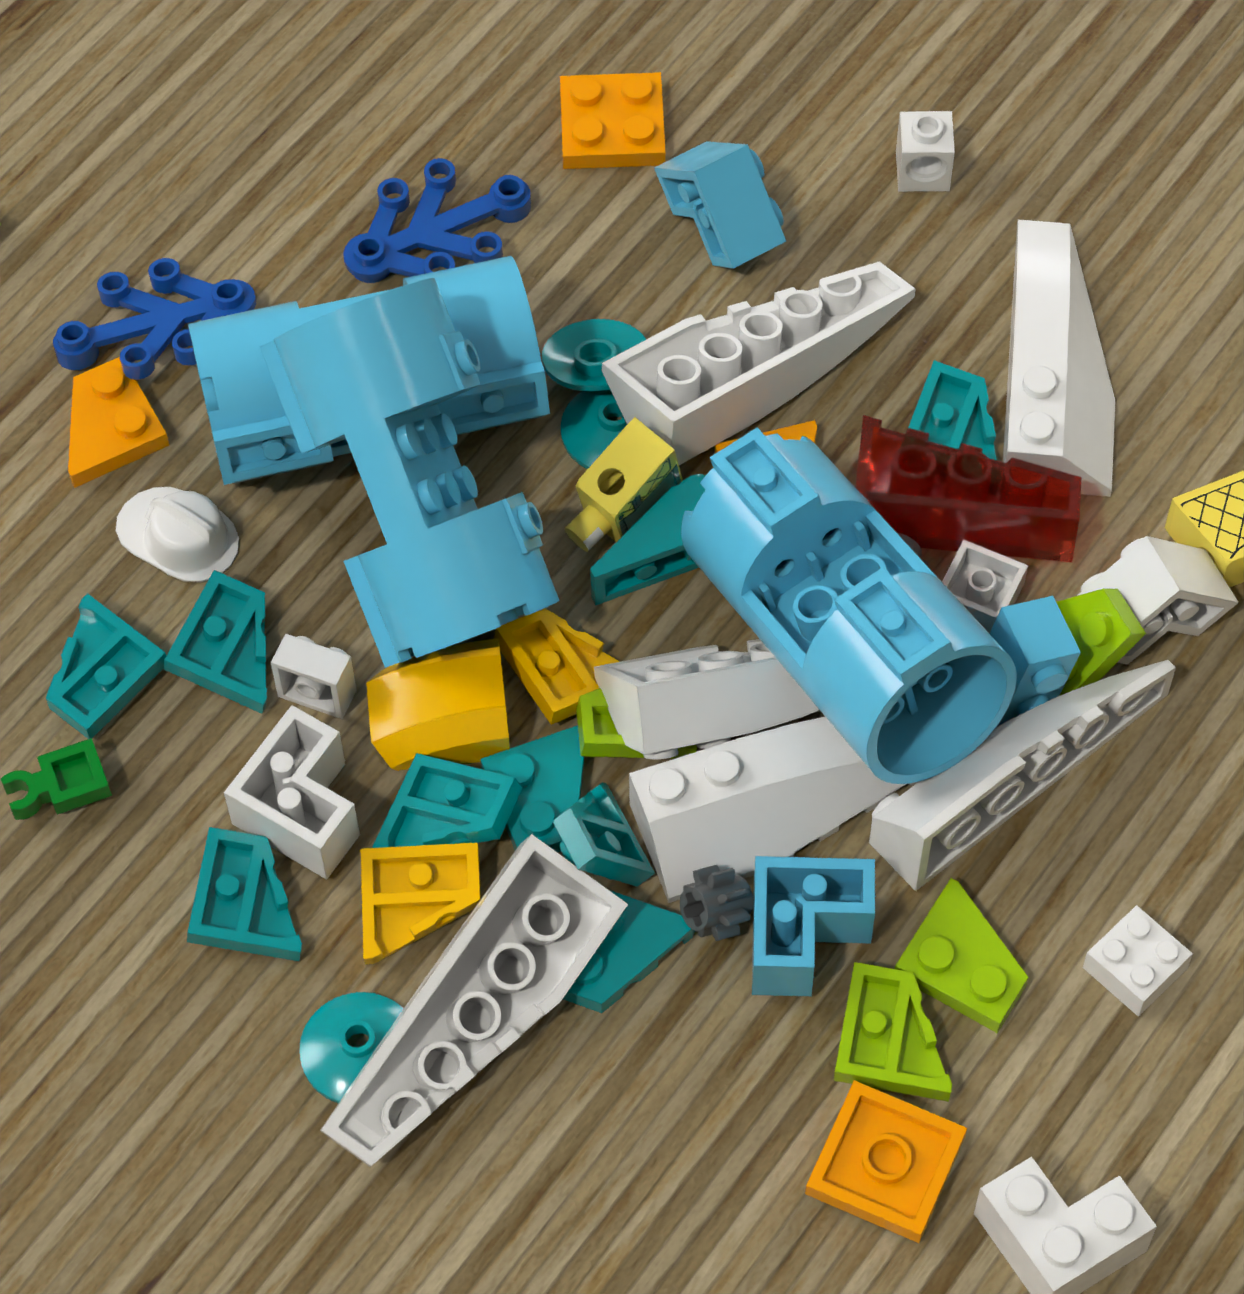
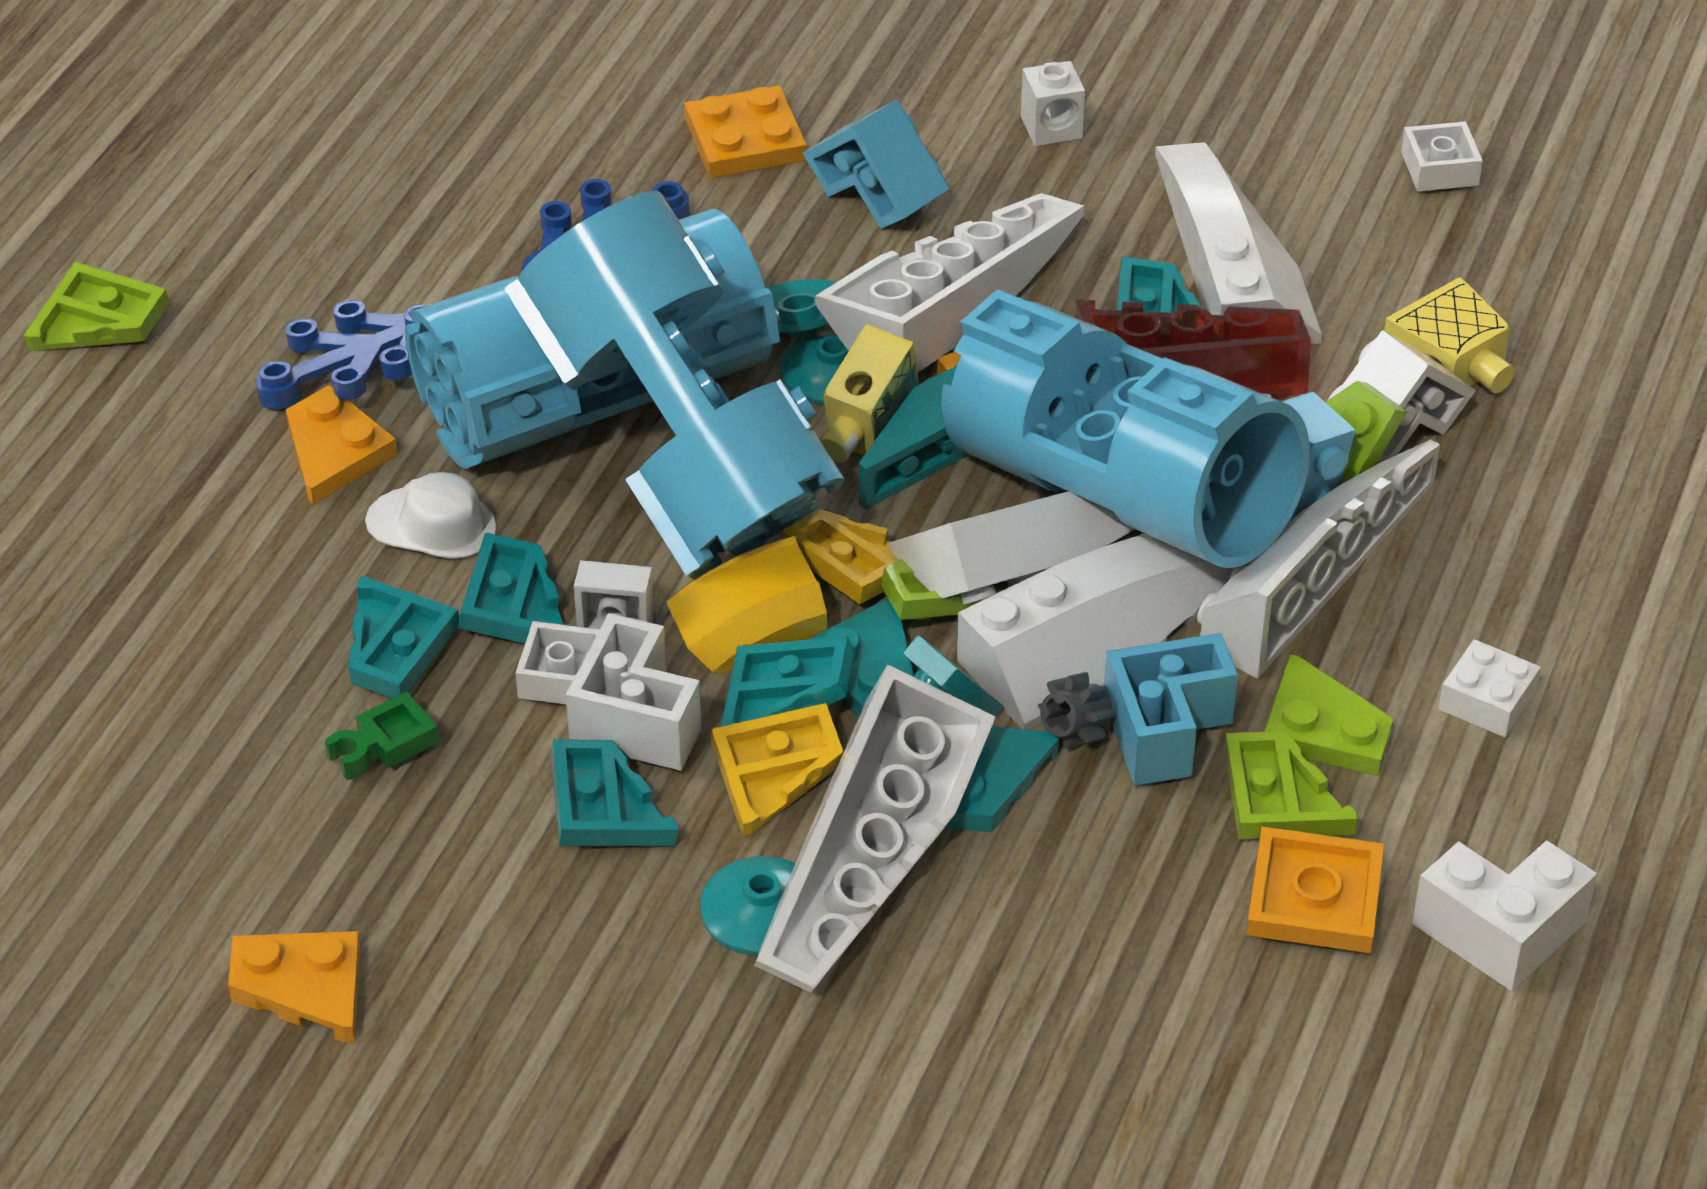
camera: 15 degrees left, 15 degrees down
(237, 729) = (551, 660): none -> white piece

